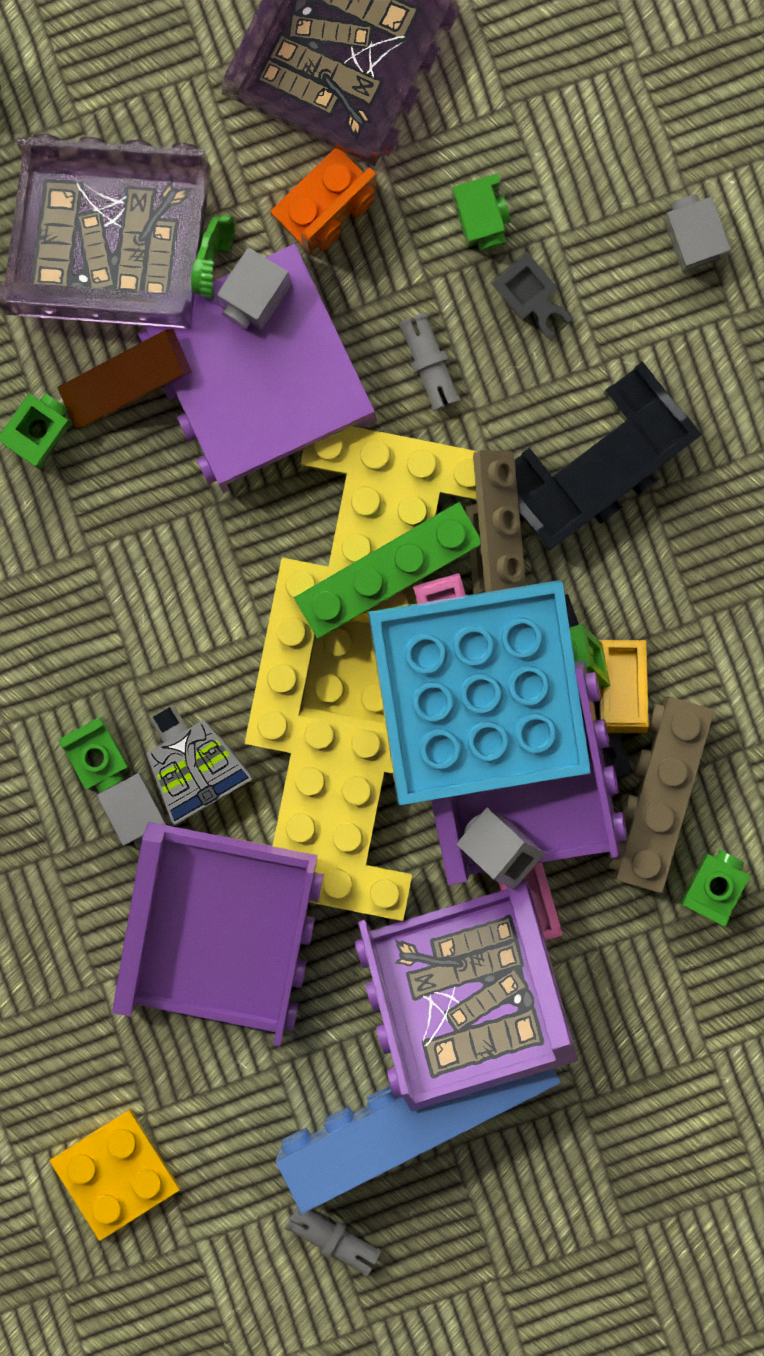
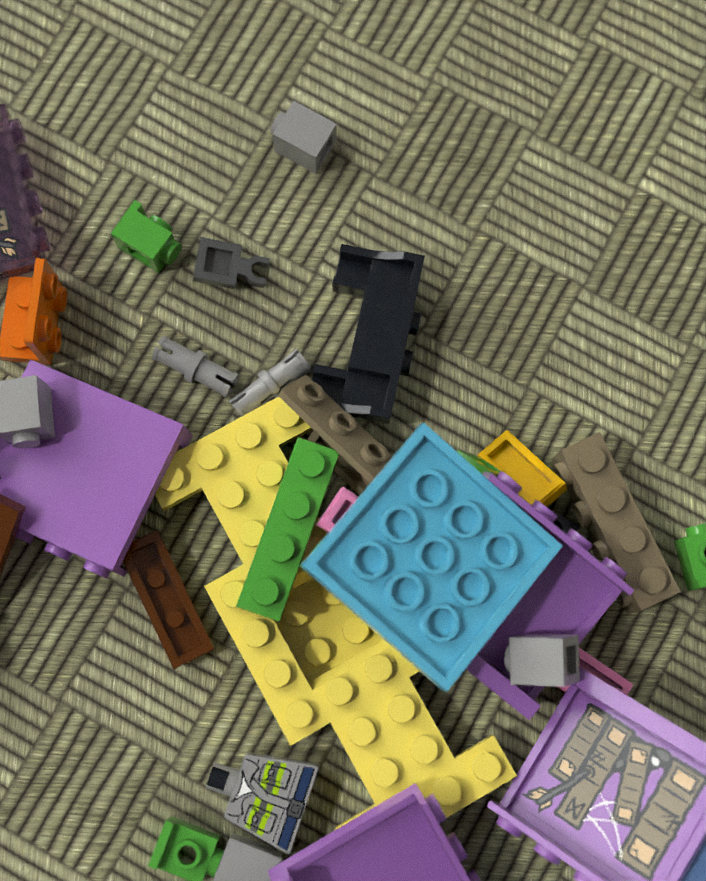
camera: 45 degrees left, 10 degrees down
(241, 542) = (166, 600): none -> reddish brown plate
(479, 432) = (271, 383): none -> light grey pin

